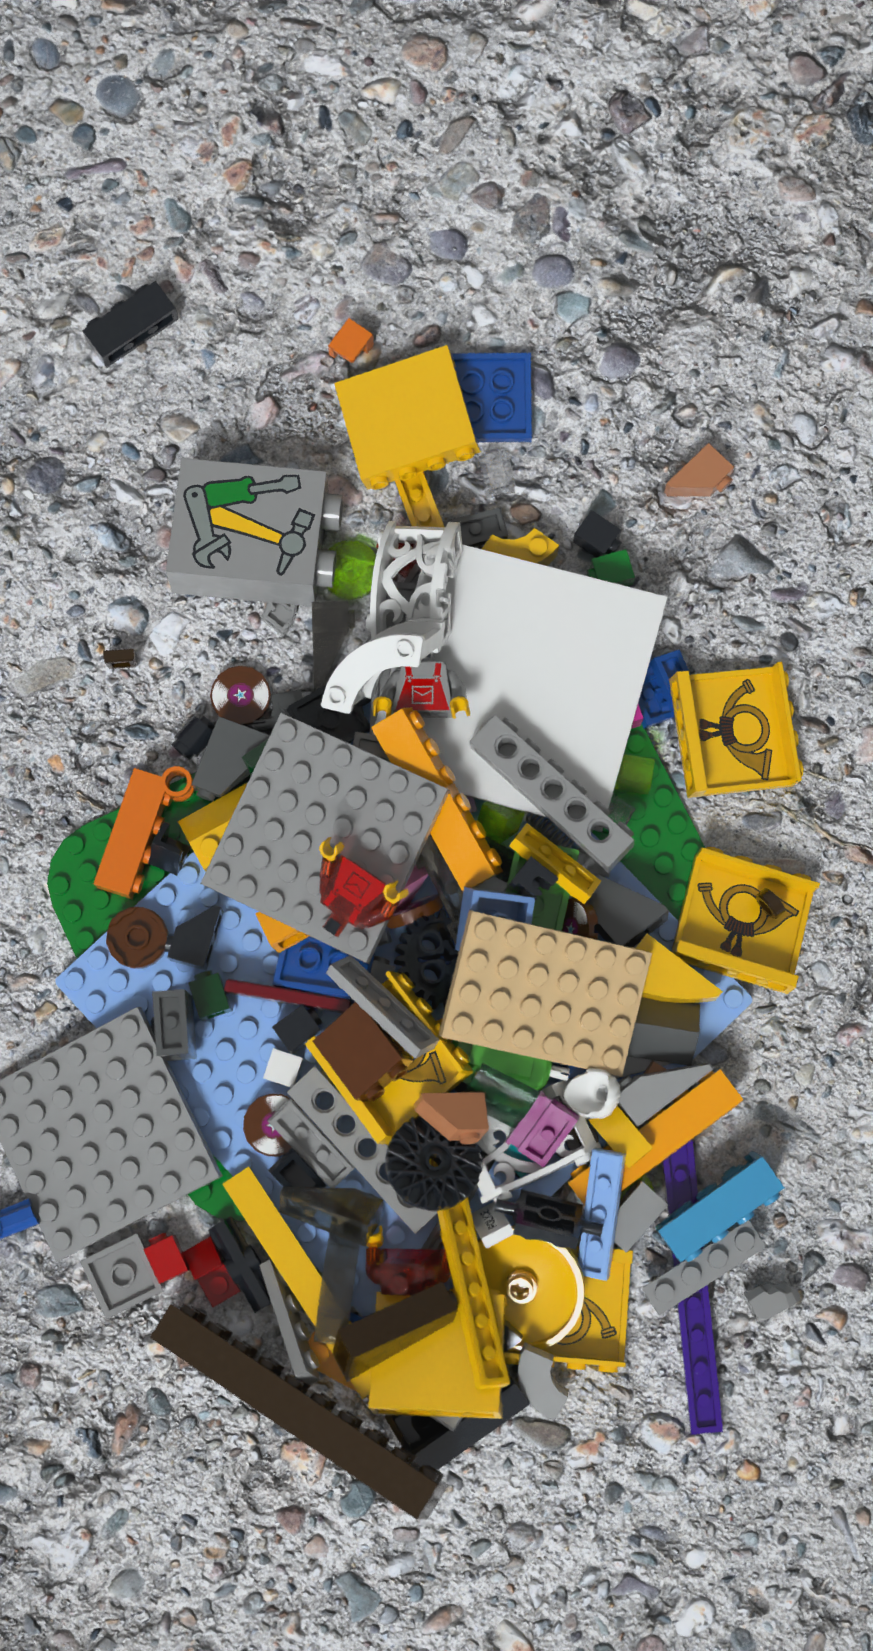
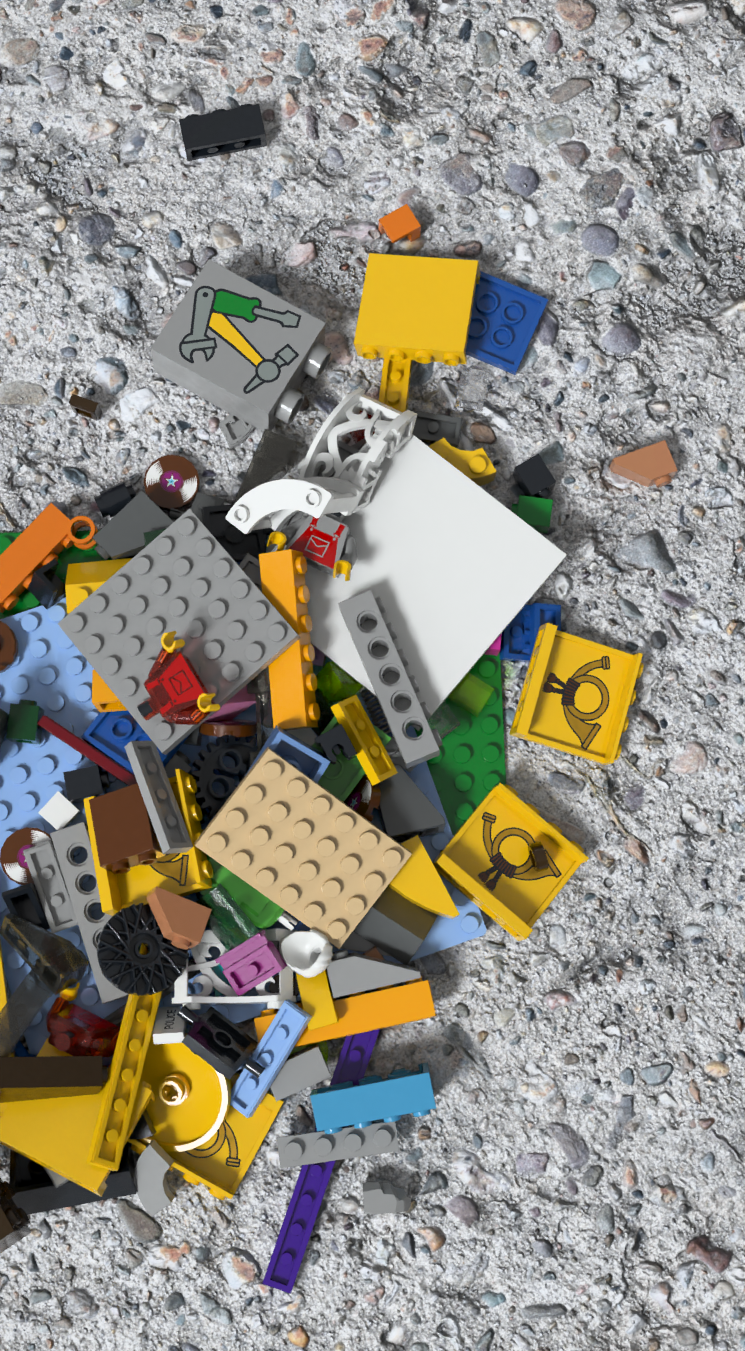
camera: 20 degrees right, 0 degrees up
(195, 939) = (35, 669): black slope -> none
(353, 570) = (311, 416): clear neon green tile -> none

